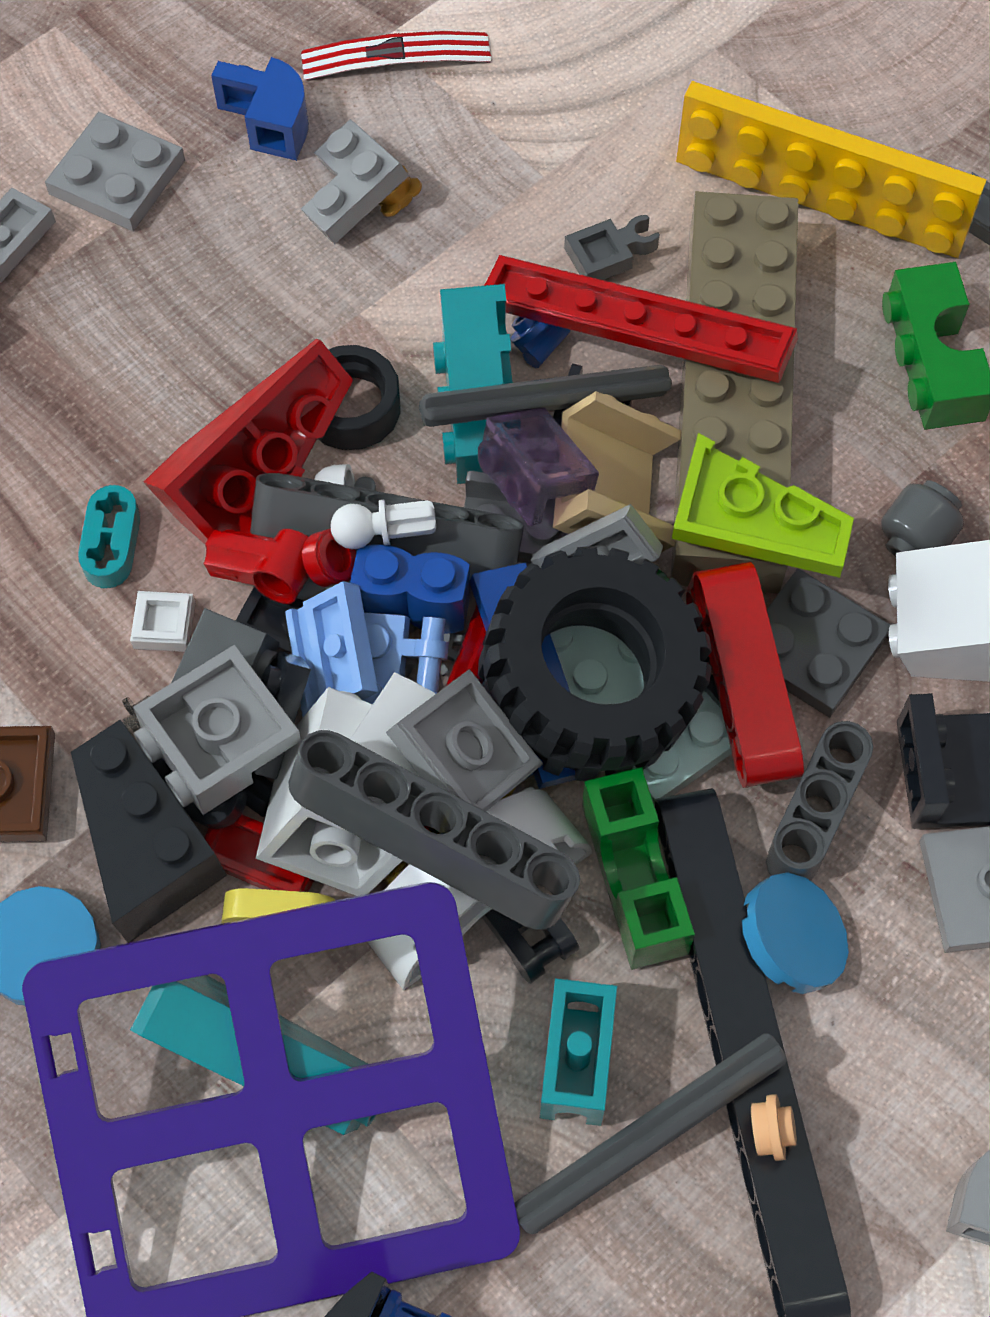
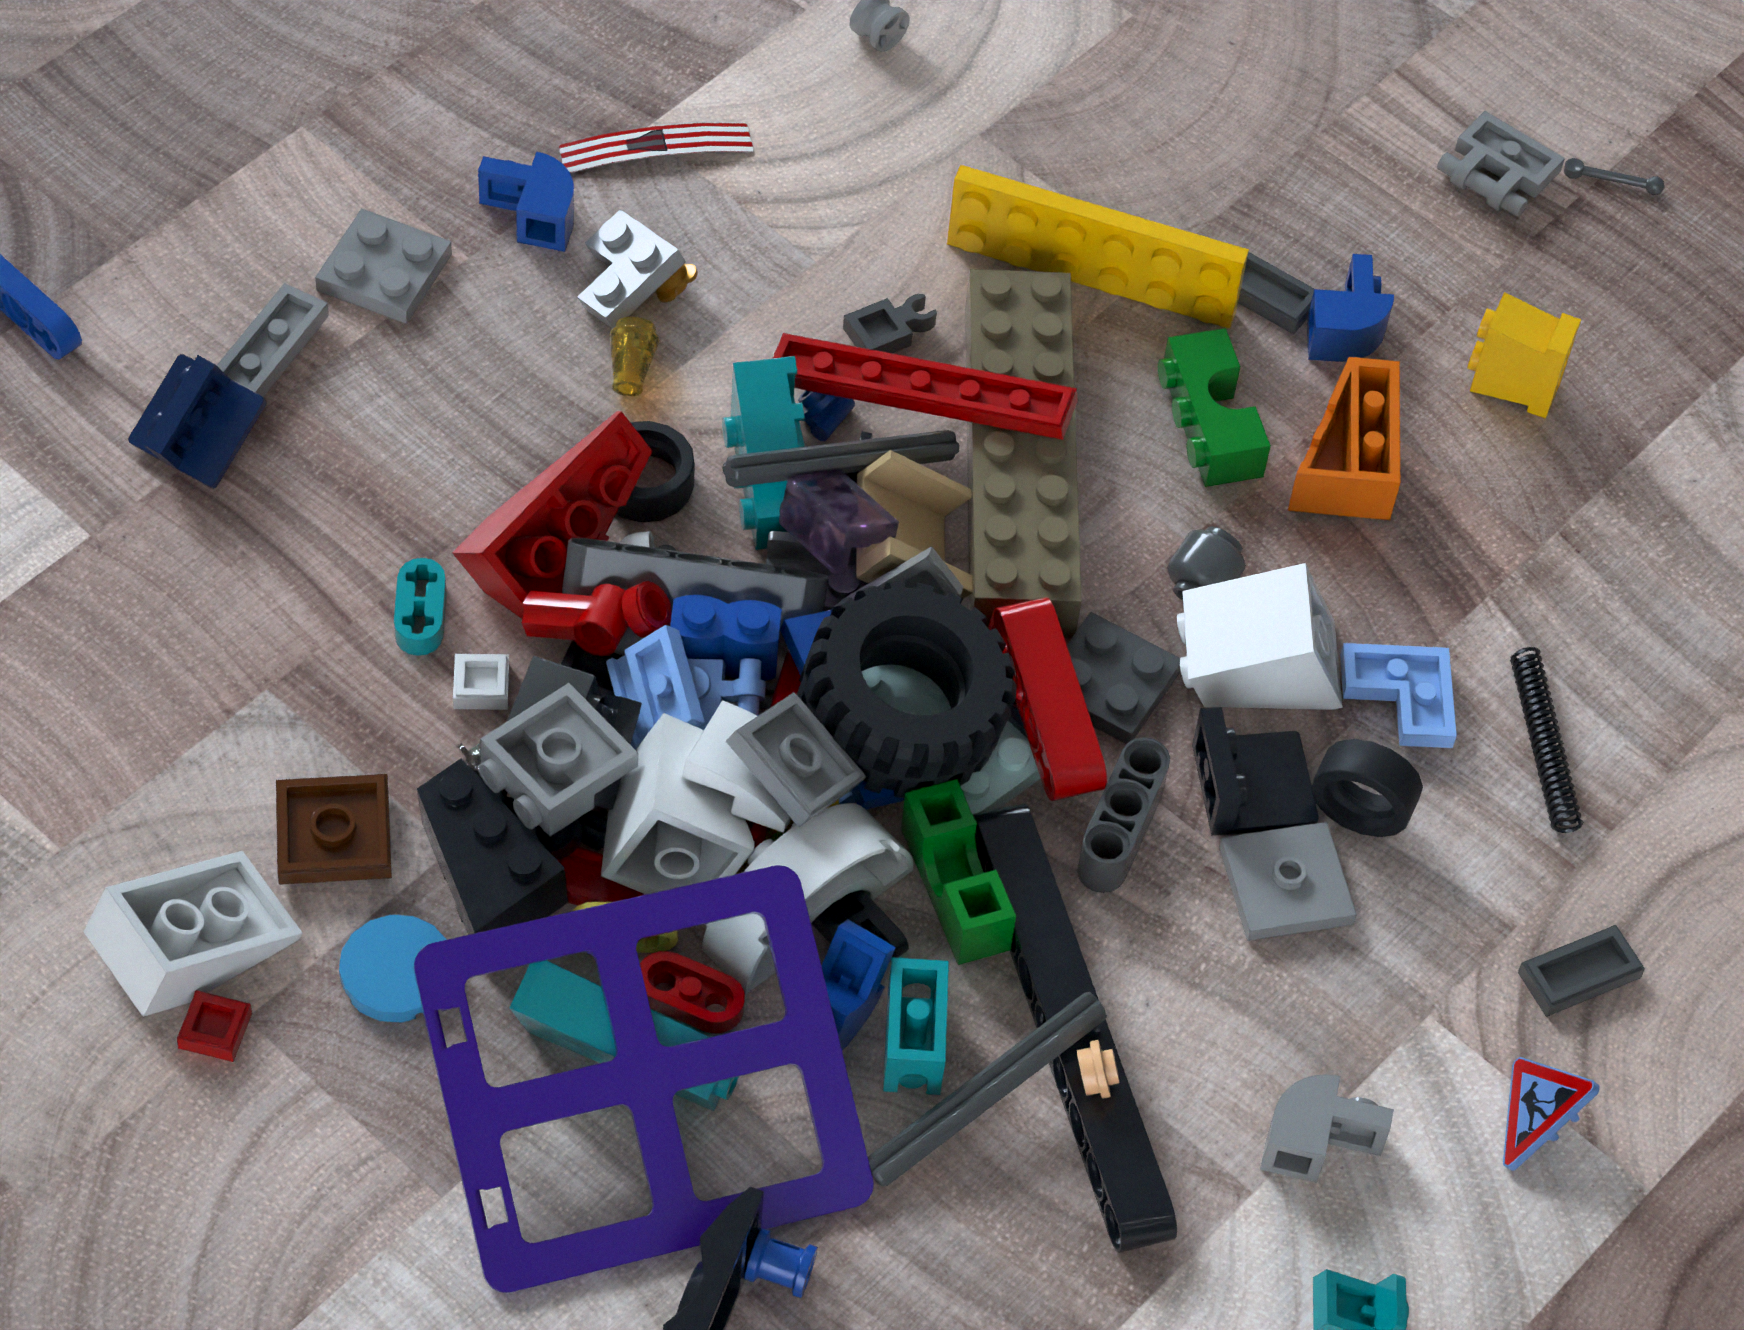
camera: 10 degrees left, 10 degrees down
(344, 992) = (692, 992): none -> red plate
(349, 269) = (632, 352): none -> clear yellow cone
(355, 525) = (672, 577): white axle -> none
(446, 856) = (775, 821): dark grey beam -> none
(511, 995) = (853, 976): none -> blue brick
(750, 515) = (1040, 555): lime wing -> none
(795, 933) = (1108, 920): dark azure tile -> none

